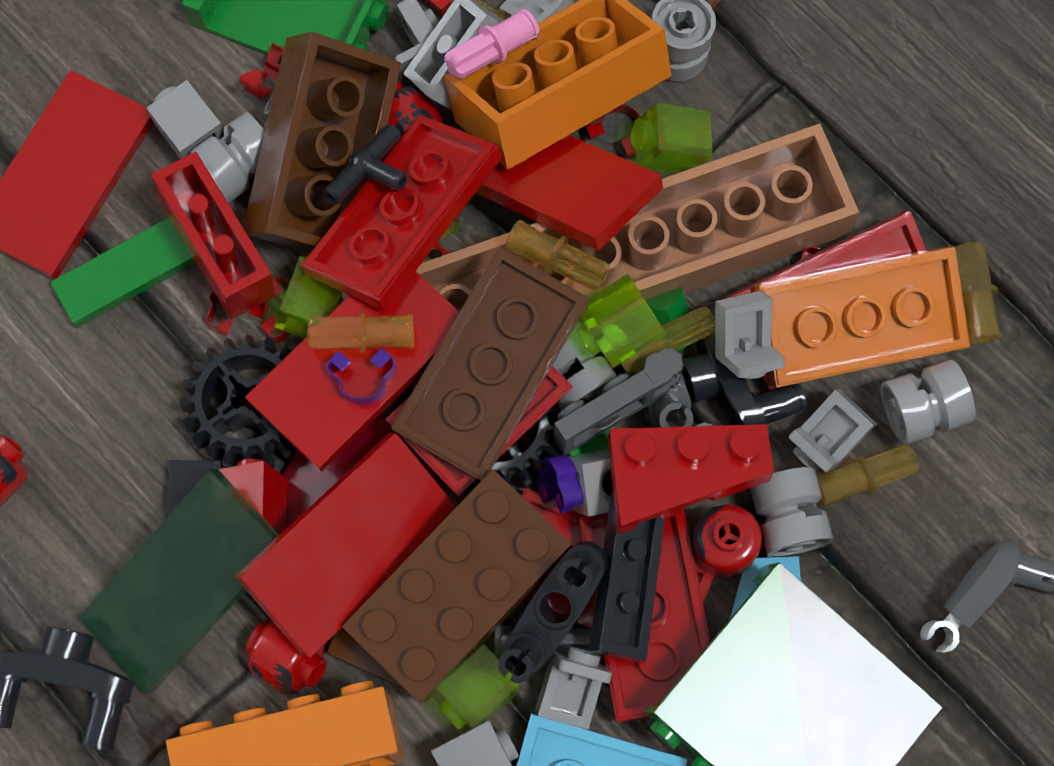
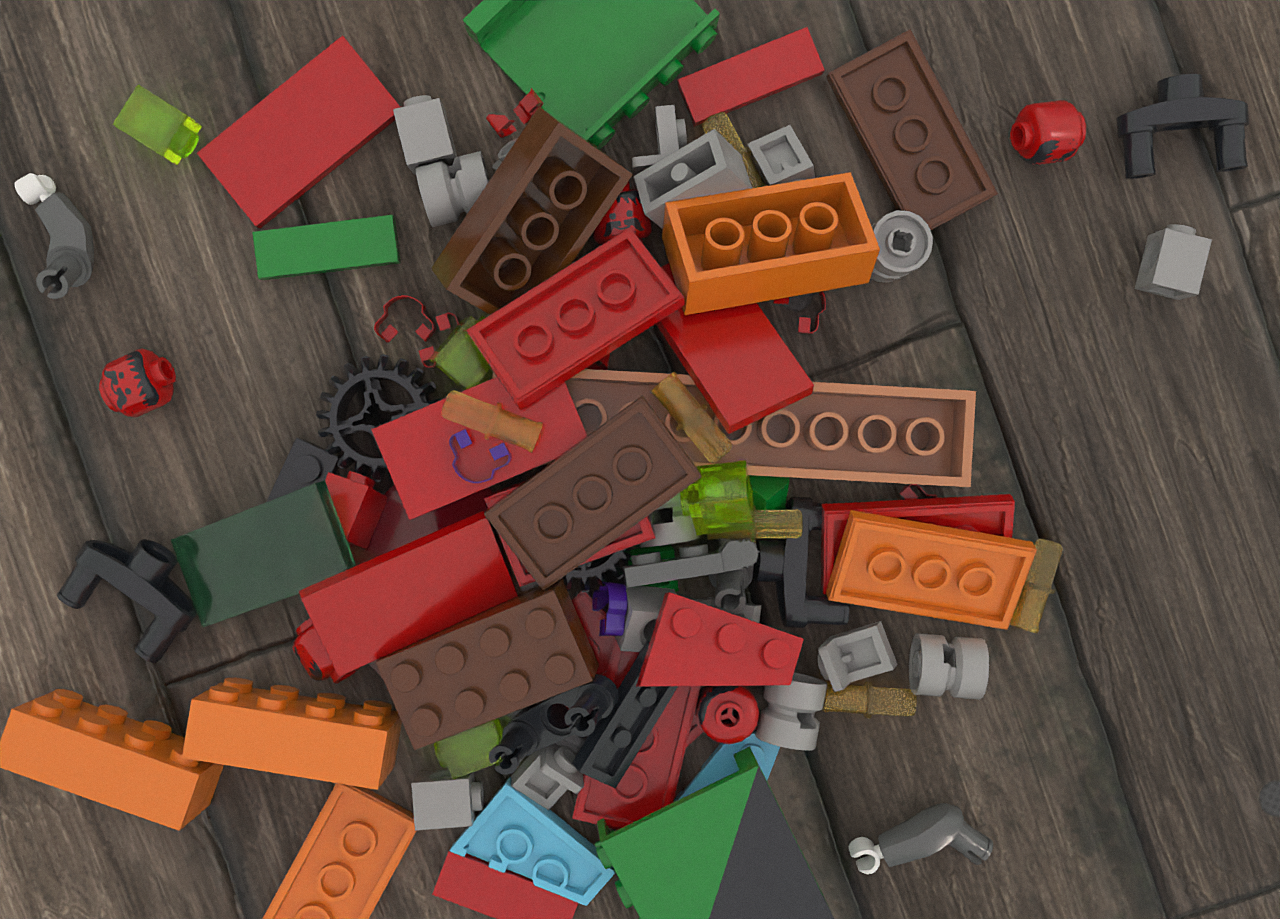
camera: 25 degrees right, 15 degrees up
(213, 235) = (403, 259): red brick -> none
(367, 164) = (561, 260): black piece -> none
(492, 44) = (719, 196): bright pink axle -> none
(672, 138) = (843, 339): clear neon green brick -> none
(745, 335) = (820, 555): light grey bracket -> none

